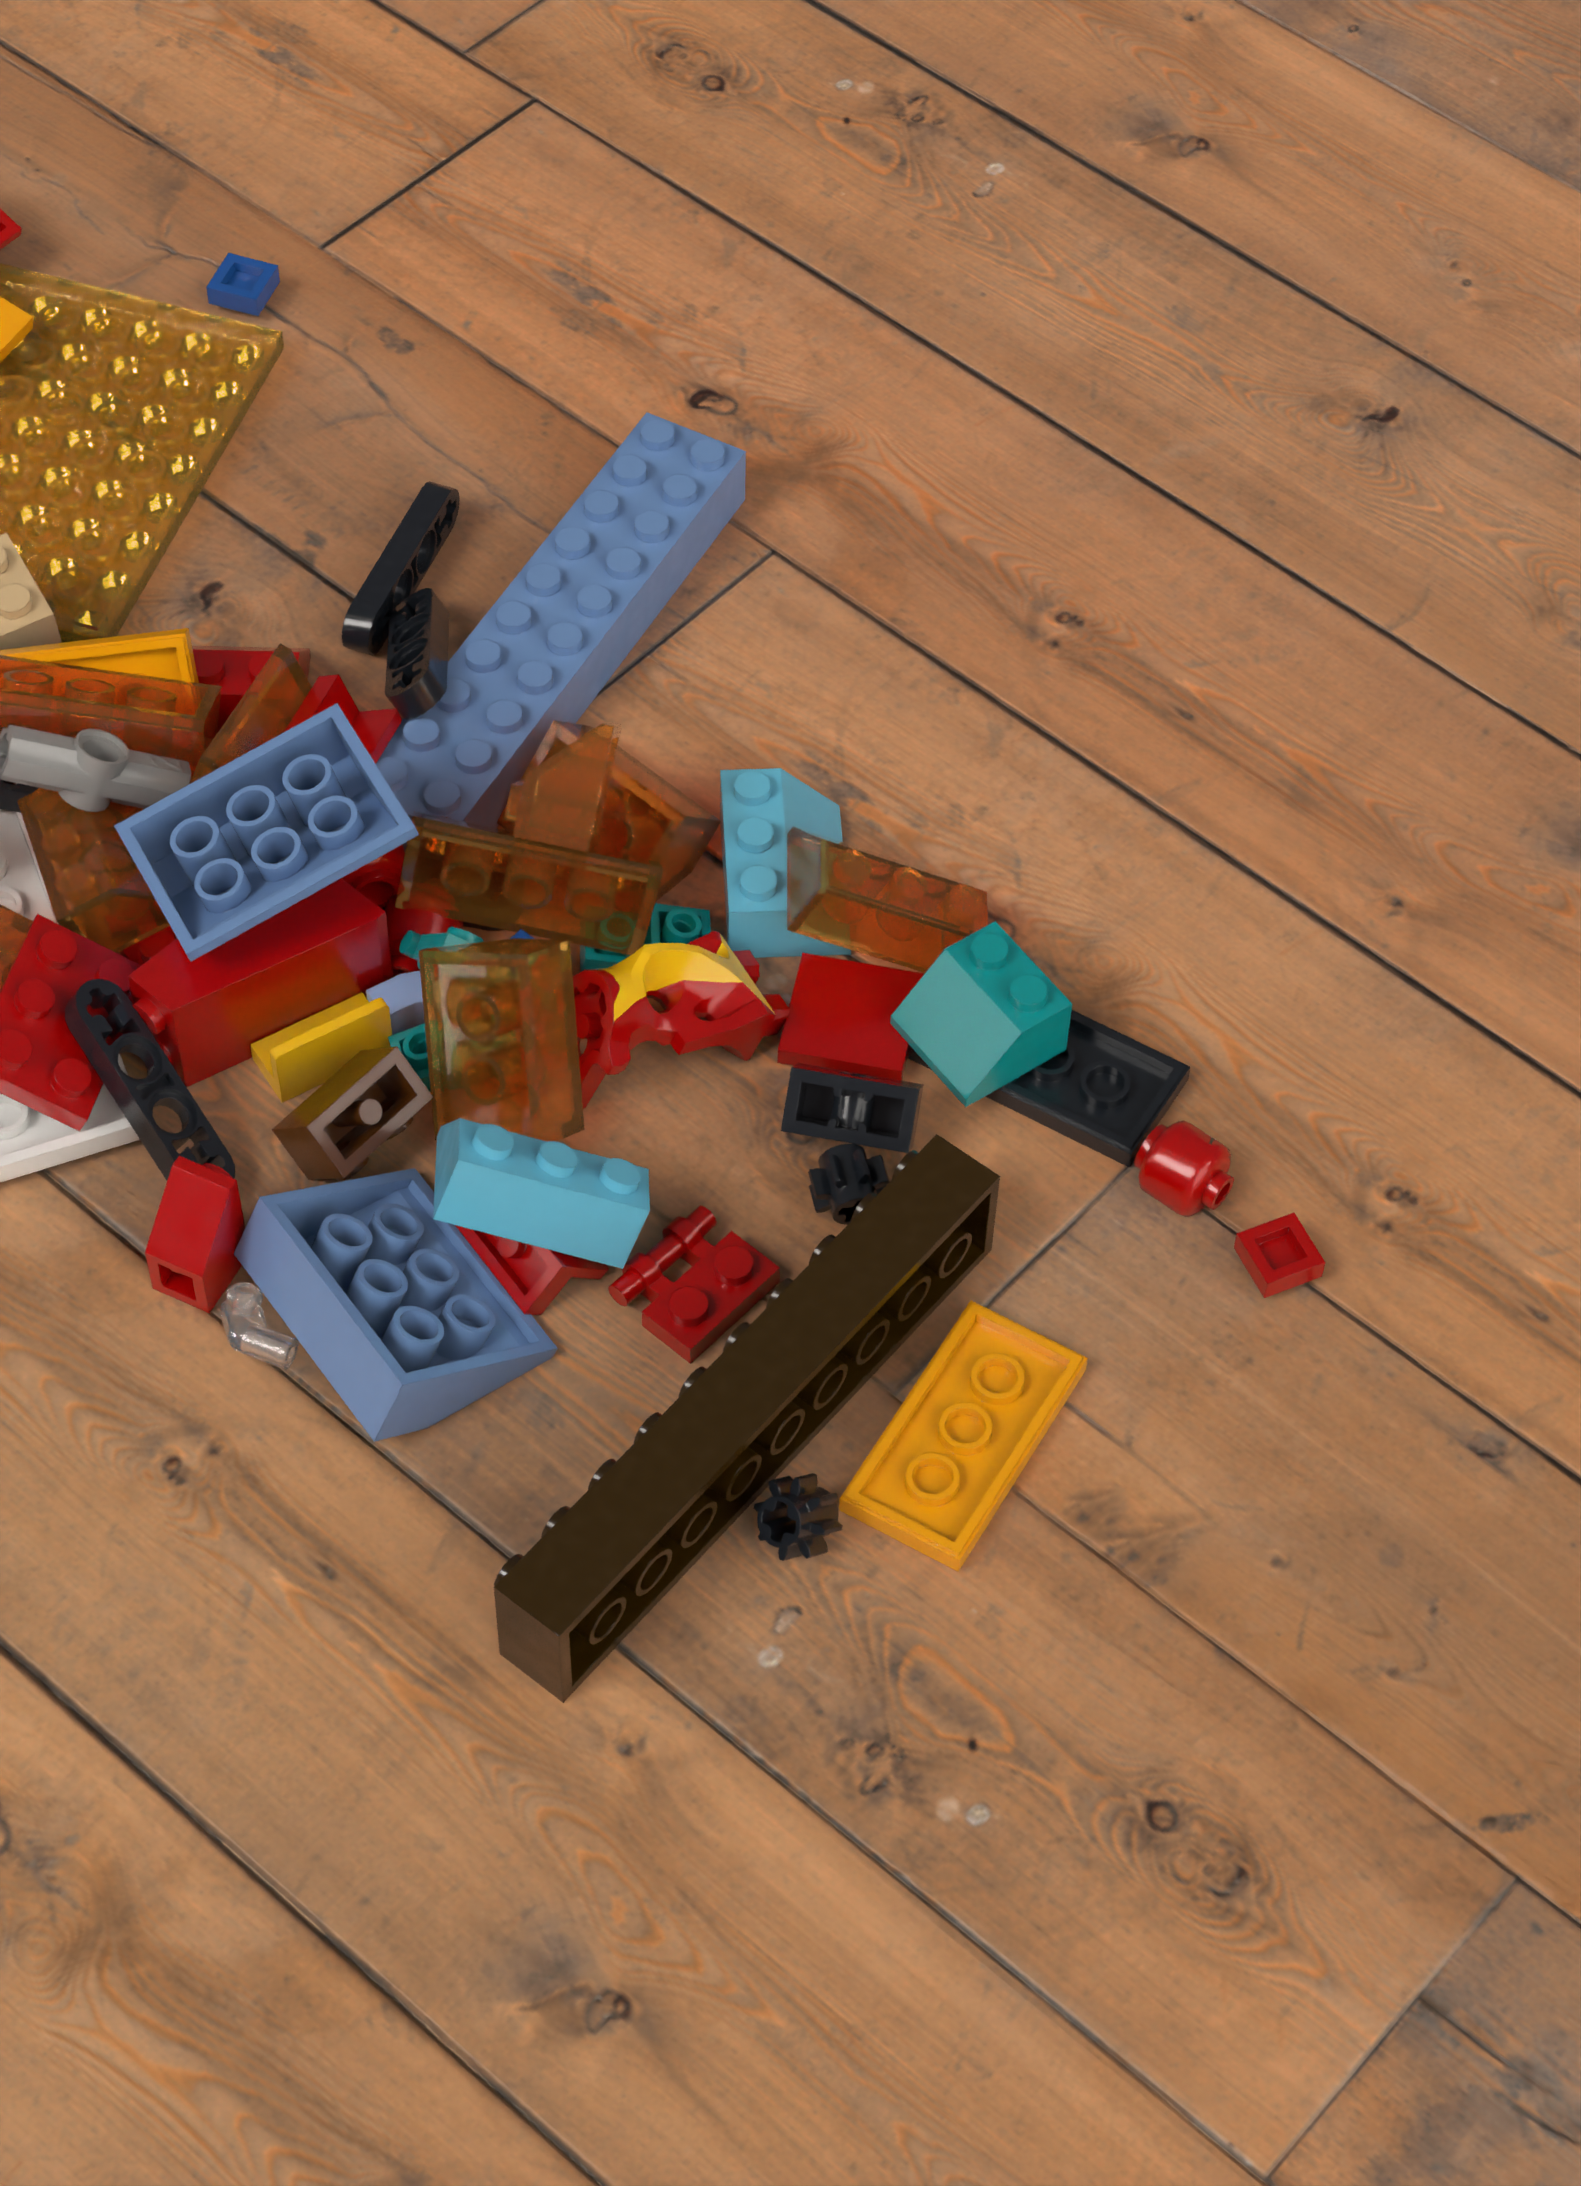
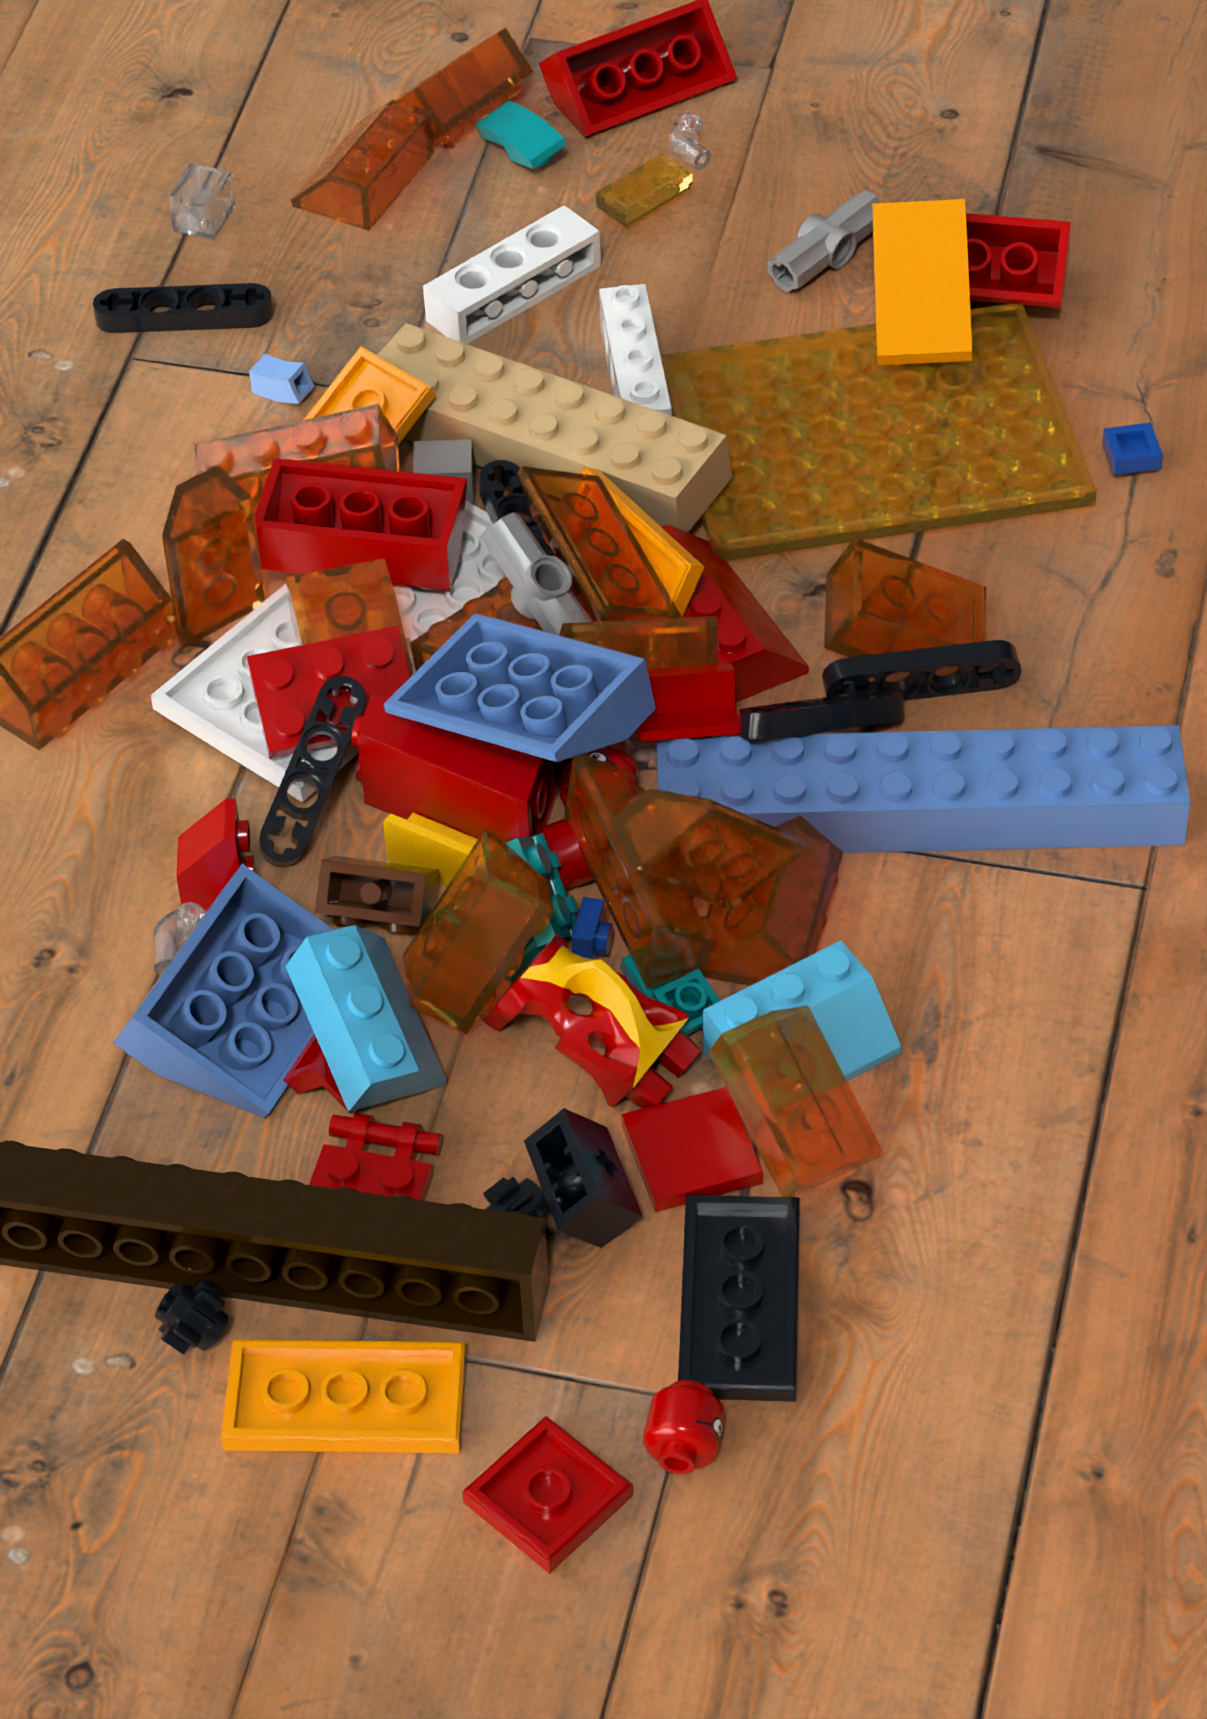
camera: 65 degrees right, 5 degrees down
(305, 544) = (897, 604): none -> clear orange slope
(983, 1015) = (730, 1220): teal slope -> none
(1184, 1316) = (547, 1494): none -> red tile
(1279, 1255) = (641, 1530): red plate -> none

